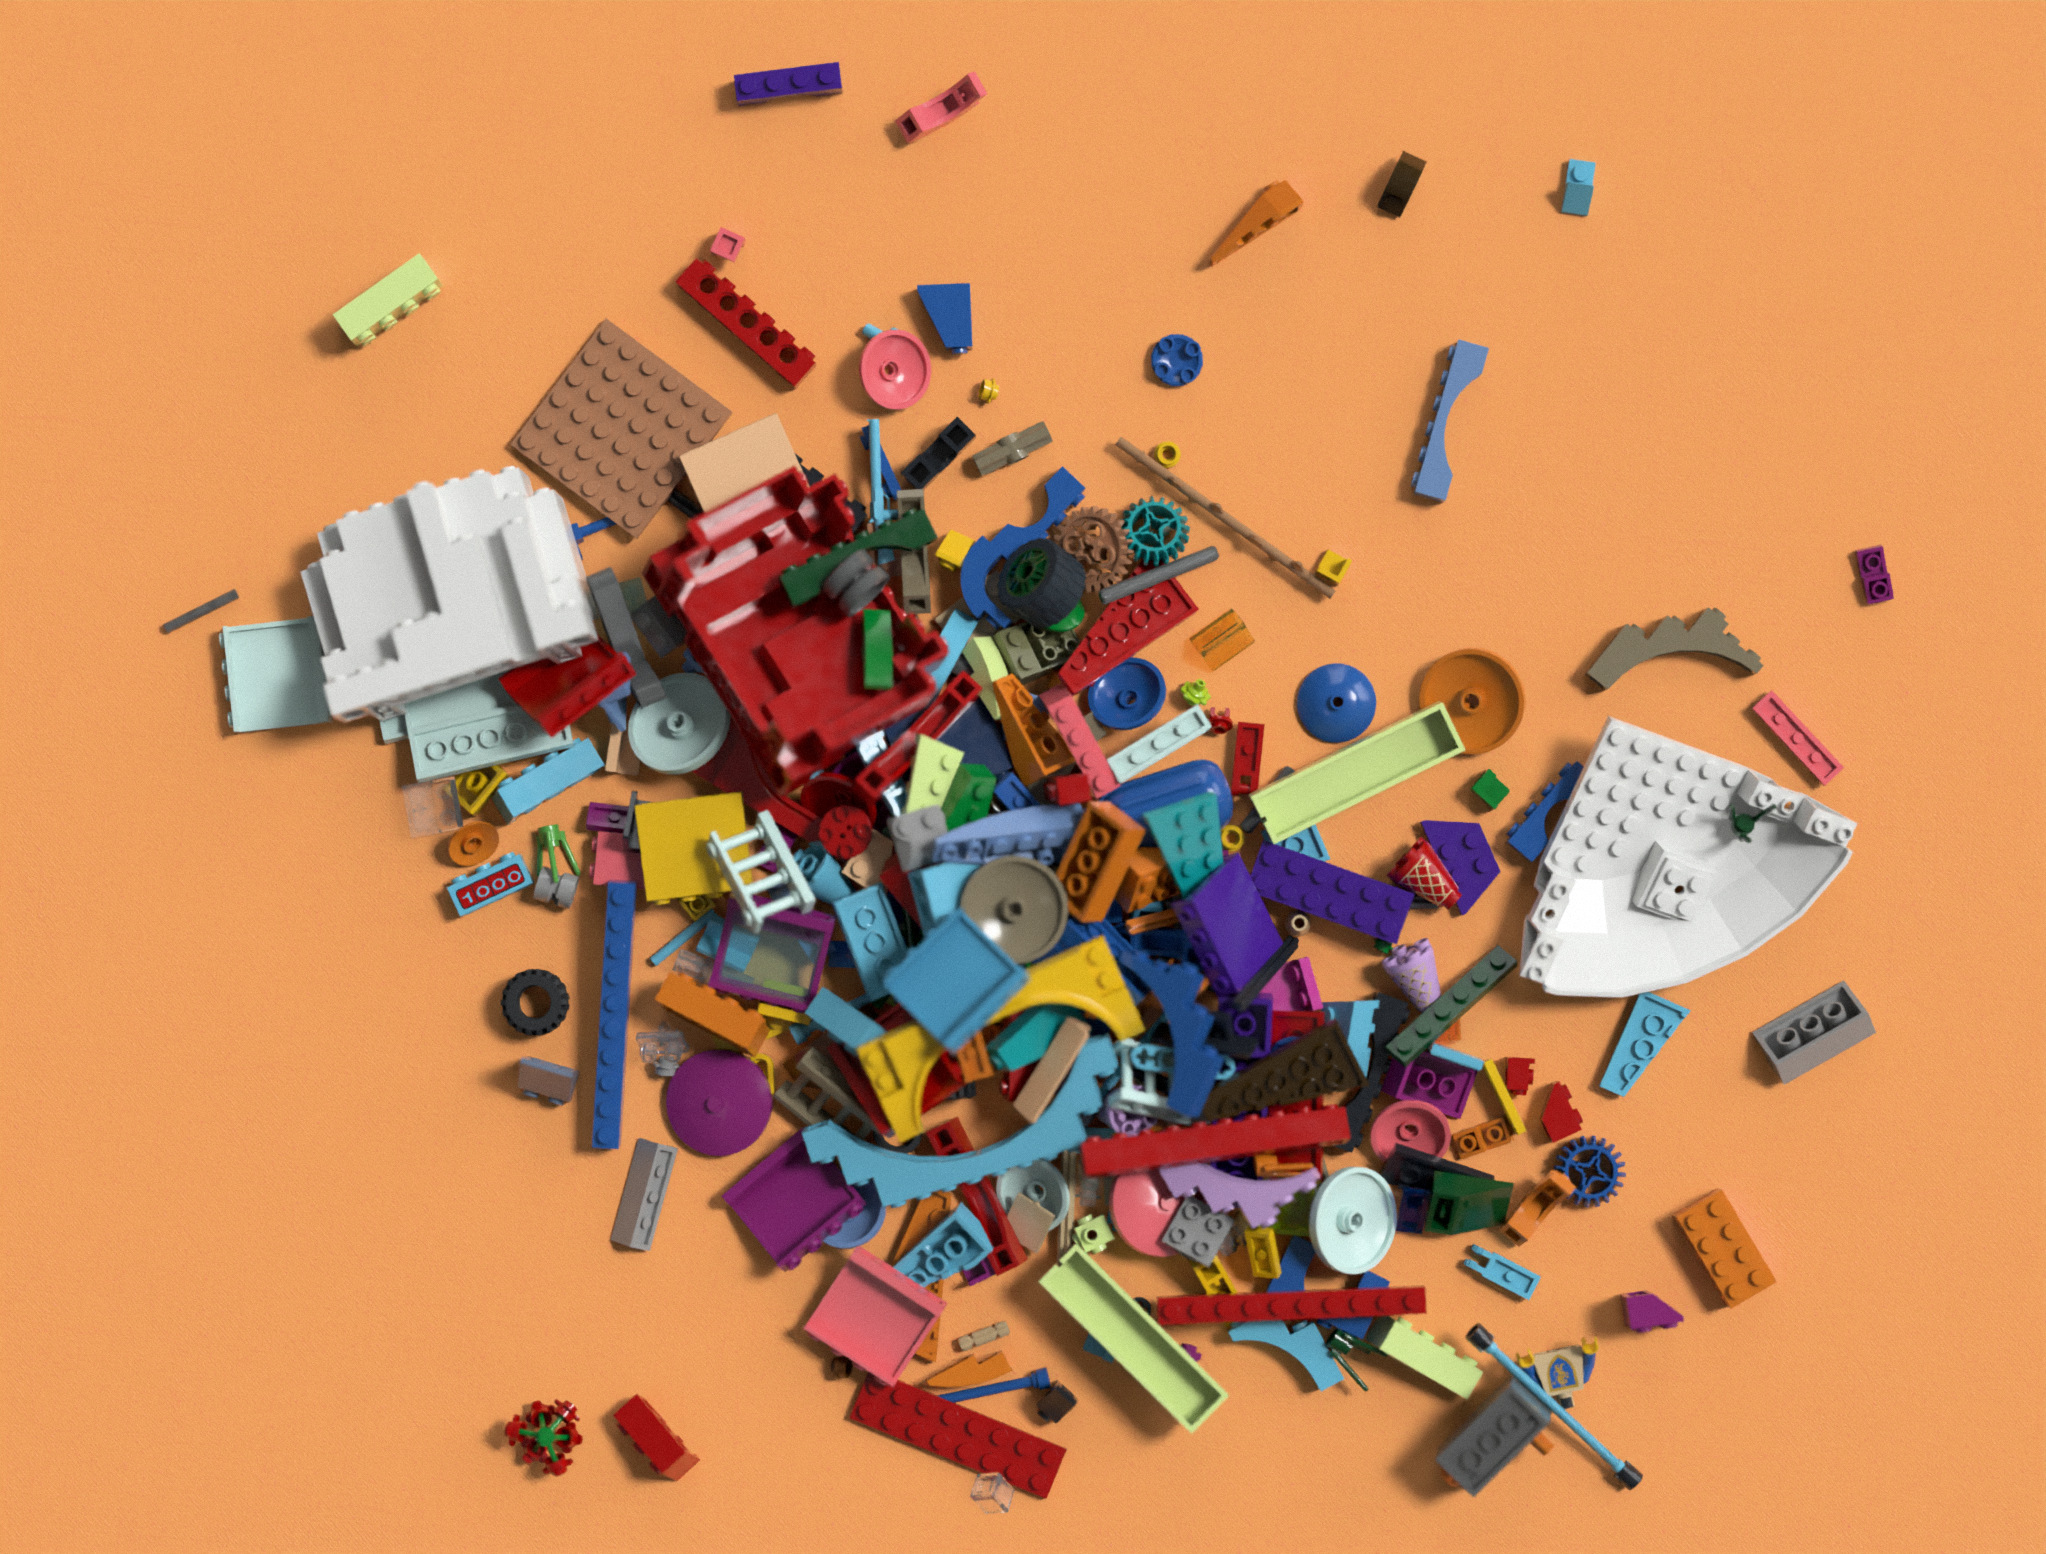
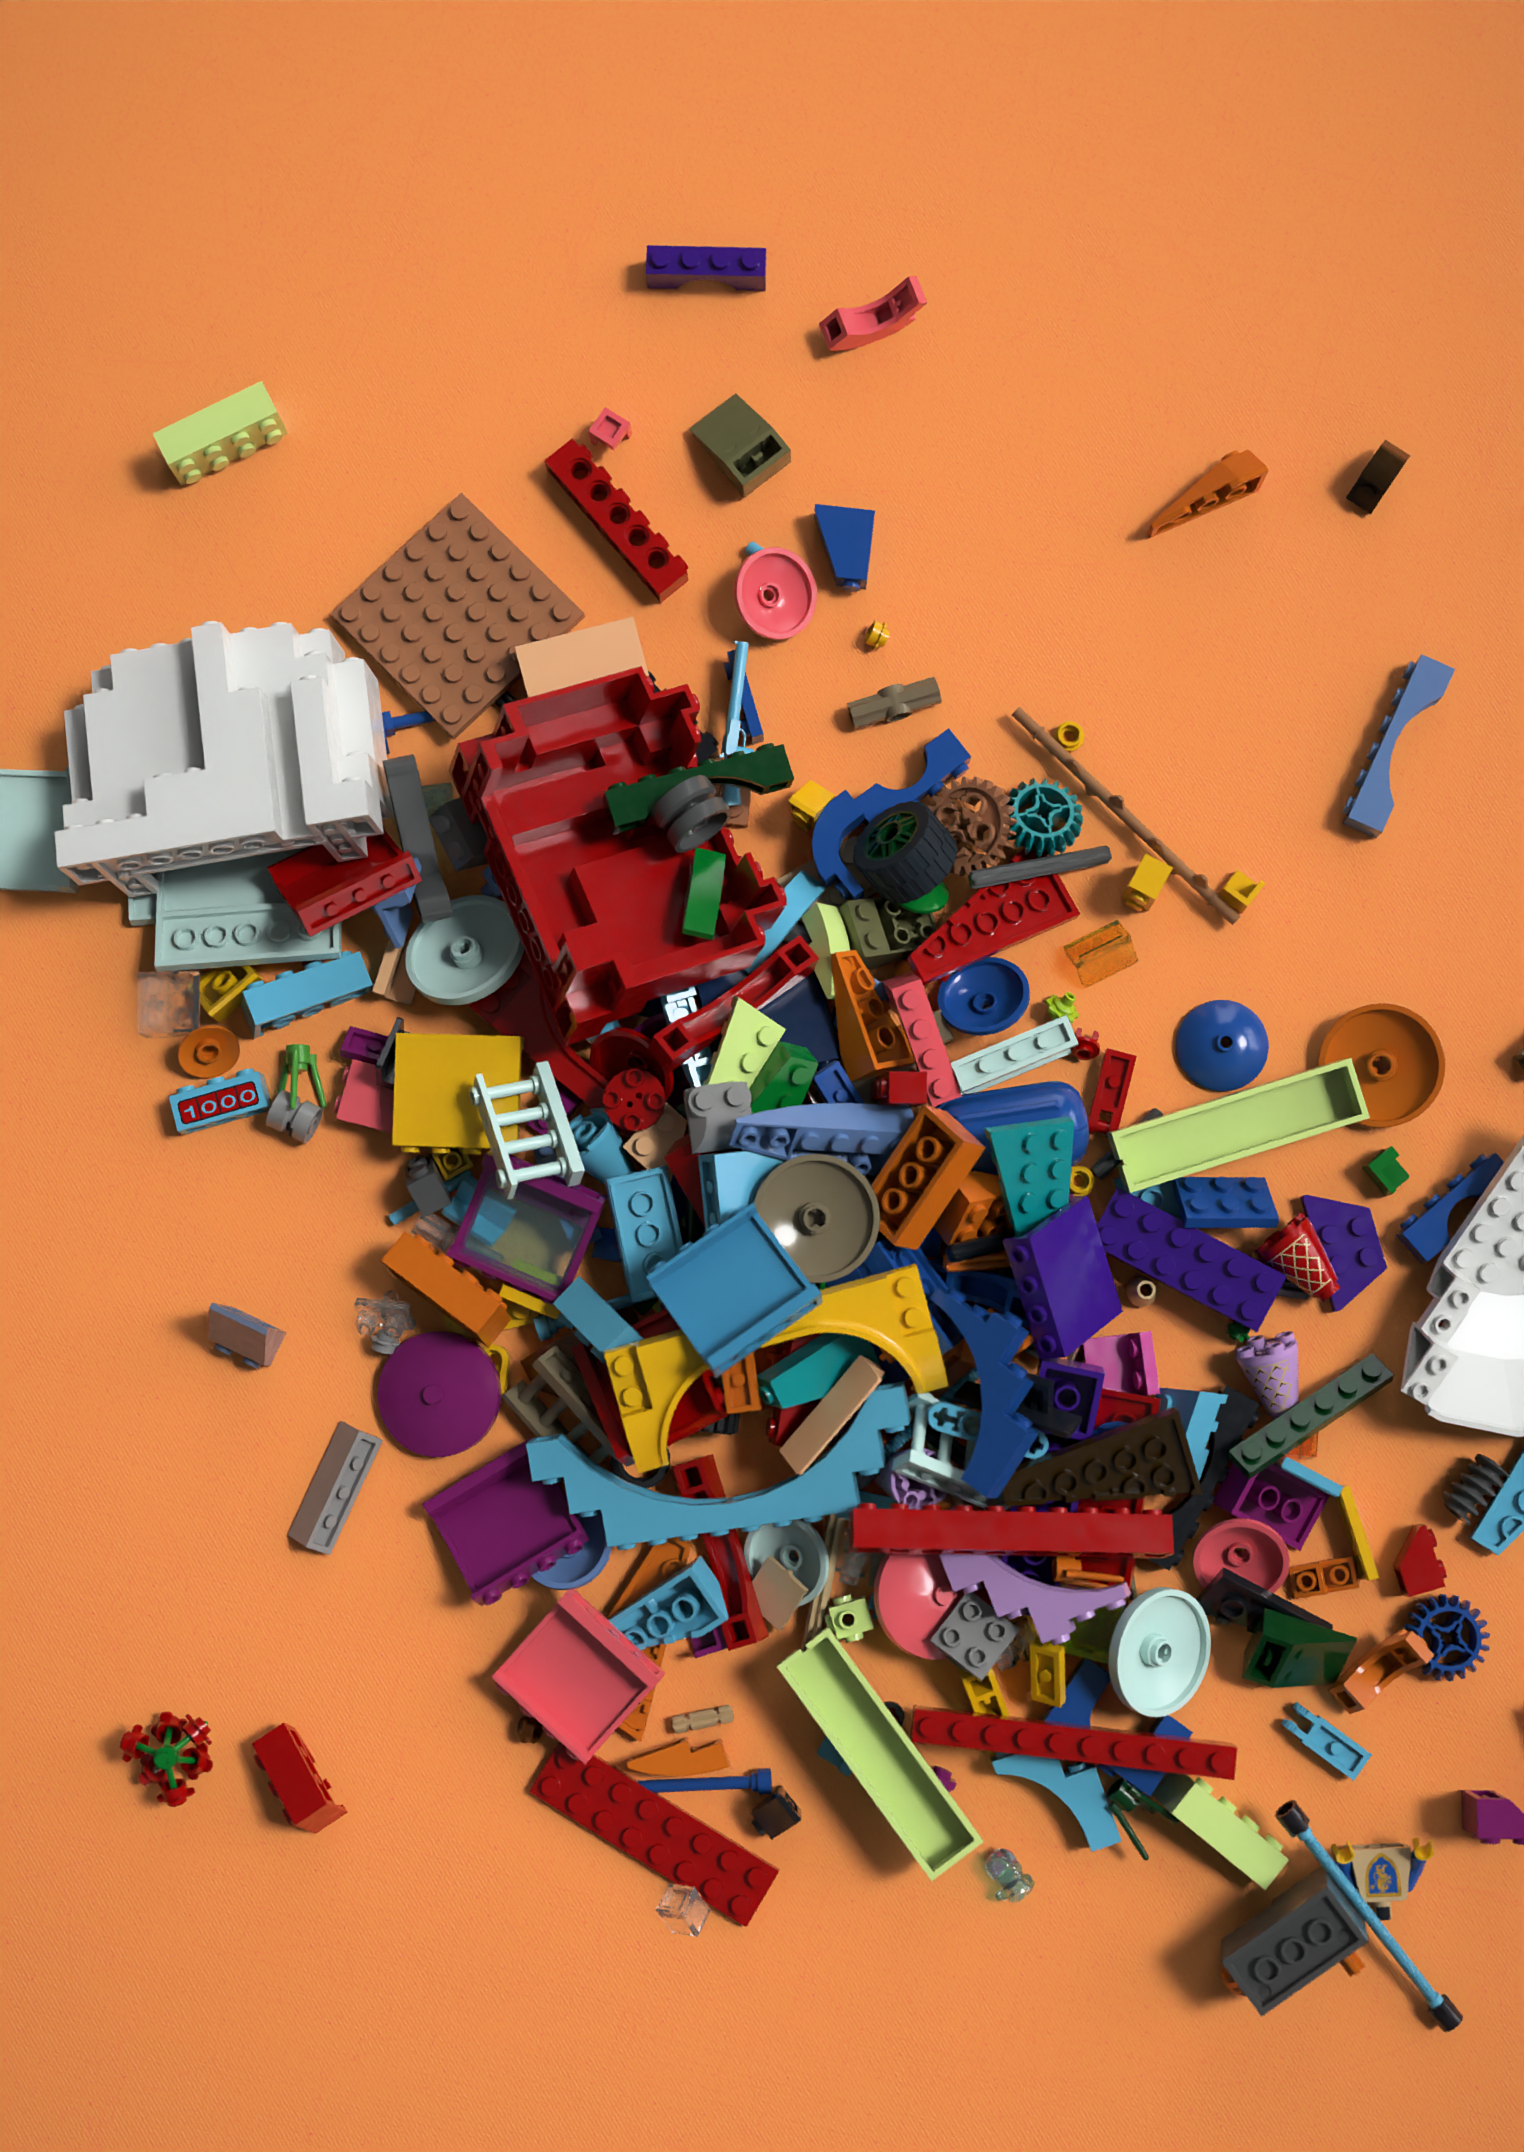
camera: 20 degrees right, 5 degrees down
(511, 1002) = (221, 1244): black tyre -> none
(614, 1014) = (334, 1272): blue brick -> none
(679, 928) = (426, 1184): none -> dark grey slope
(843, 238) = (742, 444): none -> olive slope
(915, 564) = (764, 809): dark tan arch -> none
(939, 454) = (823, 688): black arch -> none
(1153, 909) = (978, 1246): none -> black axle
(1177, 360) = (1095, 633): blue dish -> none
(1251, 576) = (1146, 883): none -> yellow brick
(1254, 1419) = (1007, 1871): none -> clear light blue animal
(1265, 974) = (1097, 1343): black axle -> none
(1356, 838) = (1225, 1202): none -> blue plate
(1412, 1210) = (1230, 1649): clear blue slope -> none
(1518, 1074) = (1377, 1509): red brick -> none
(1596, 1044) = (1473, 1487): none -> dark grey piece

